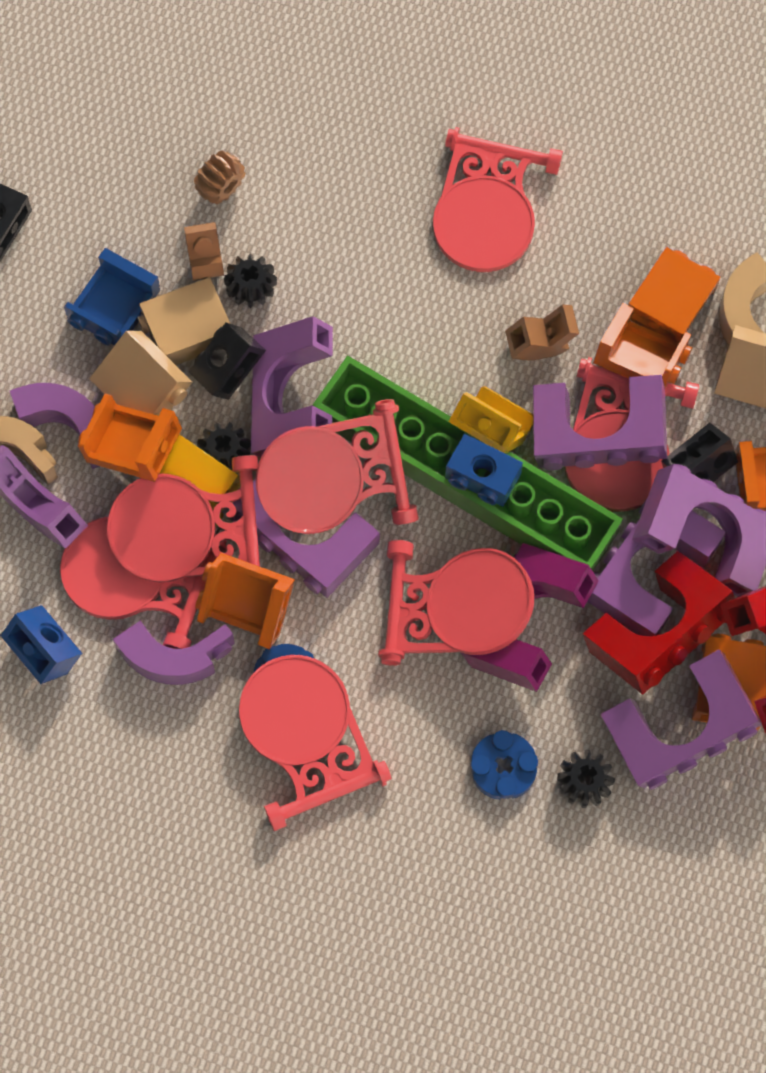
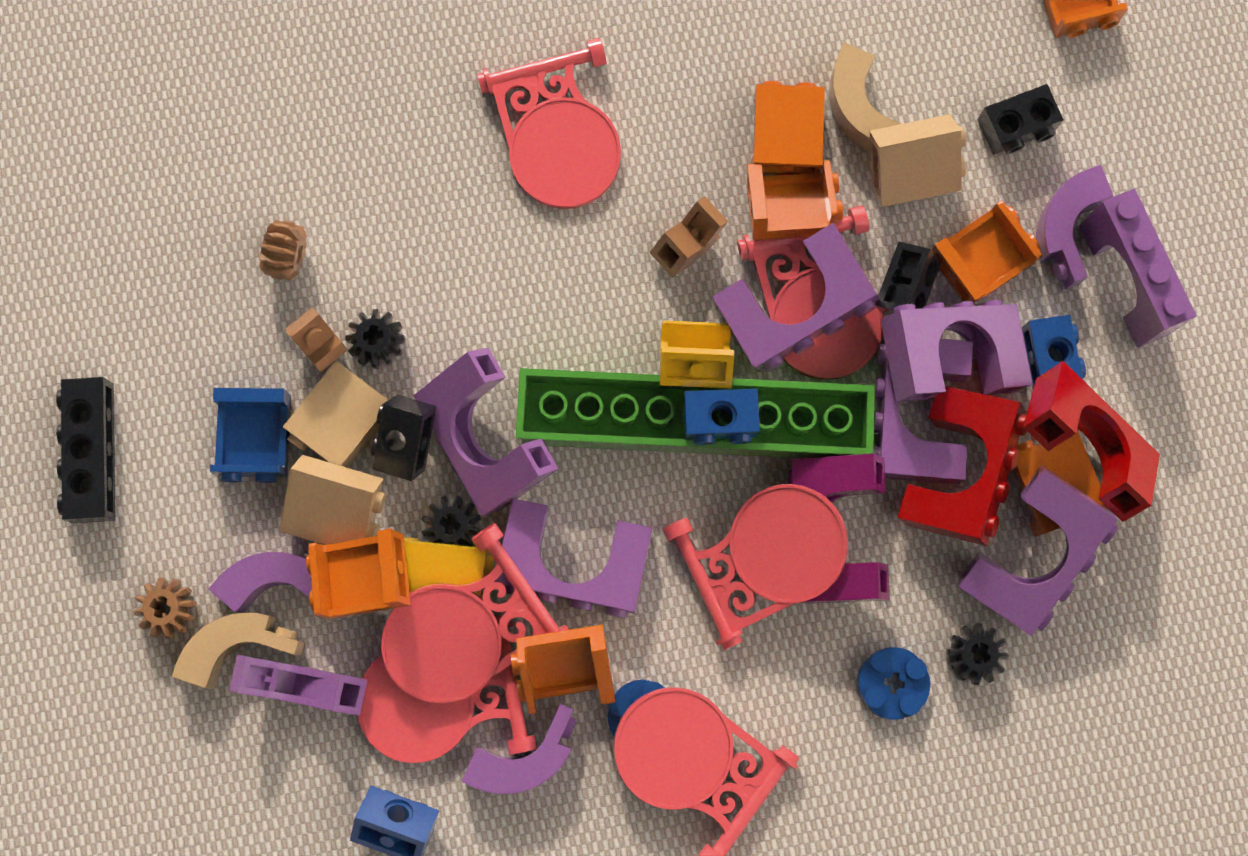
camera: 30 degrees left, 10 degrees up
(316, 479) = (565, 508): coral piece -> none

